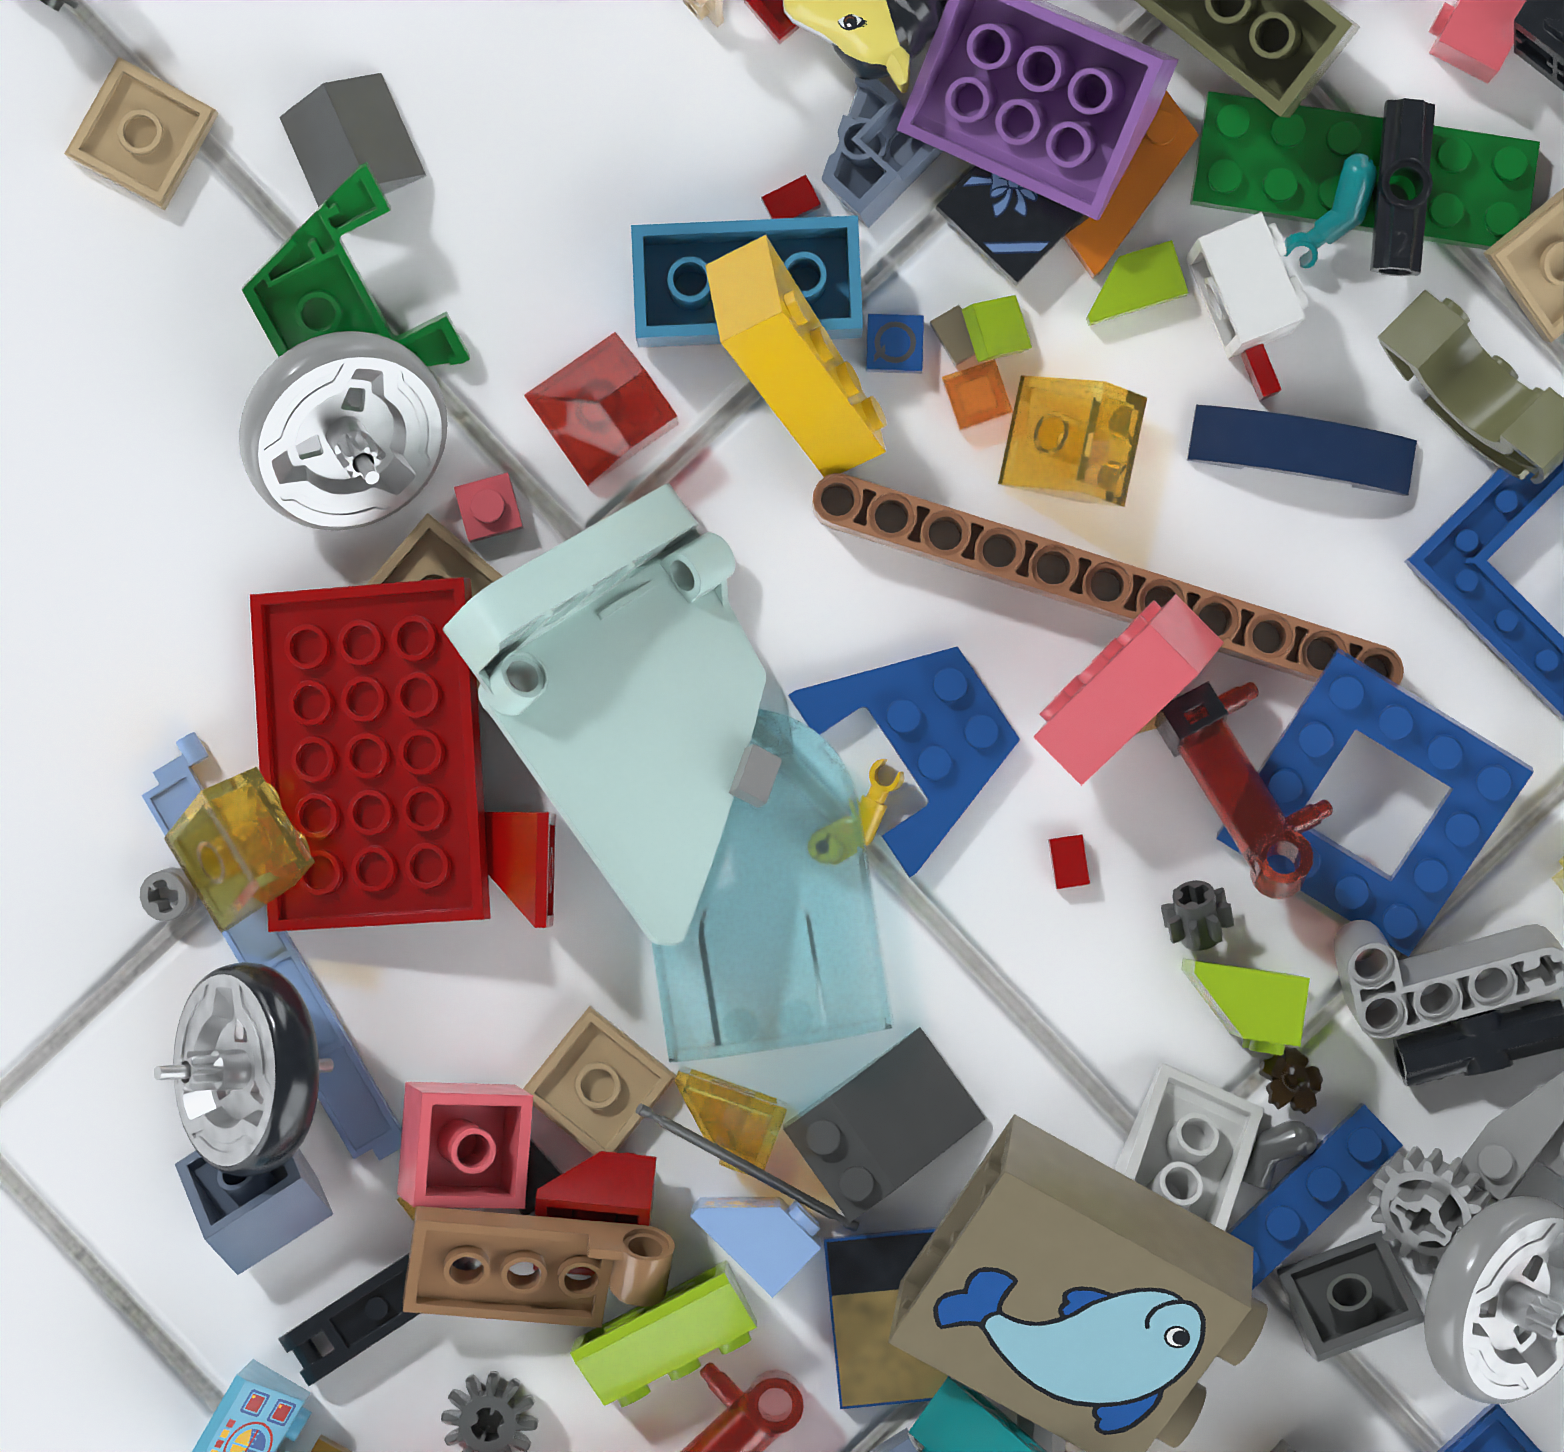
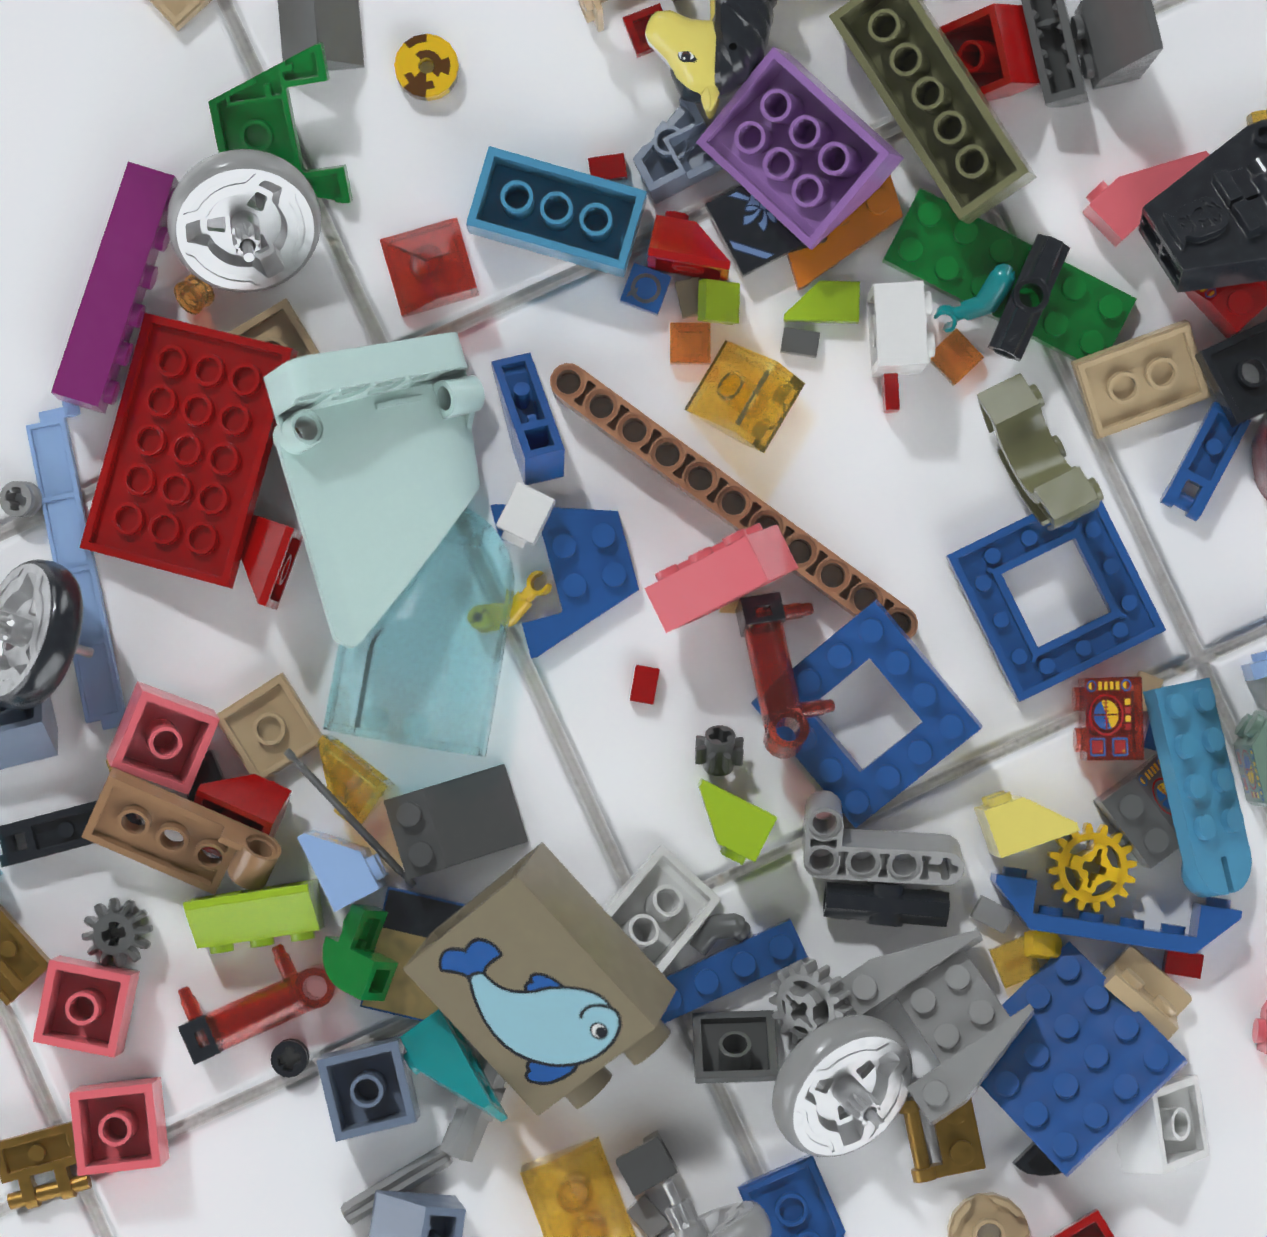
camera: 25 degrees right, 0 degrees up
(203, 575) = (116, 290): none -> magenta brick
(238, 847) = (77, 482): clear yellow slope -> none
(305, 549) = (193, 294): none -> clear orange bush
(488, 507) = (329, 308): coral plate -> none
(506, 123) = (426, 49): none -> yellow piece
(755, 775) = (446, 551): light grey piece -> none
(793, 359) = (567, 274): yellow wedge -> none
(801, 566) = (529, 419): none -> blue slope
(813, 1353) = (352, 959): none -> green brick
(841, 693) = (525, 515): none -> white brick
(932, 274) = (685, 249): none -> red slope
(1119, 345) = (800, 342): none -> dark grey piece
(1291, 1080) = (746, 886): dark brown plant -> none
(1302, 448) = (902, 454): dark blue slope -> none
(1331, 297) = (955, 357): none -> clear orange tile

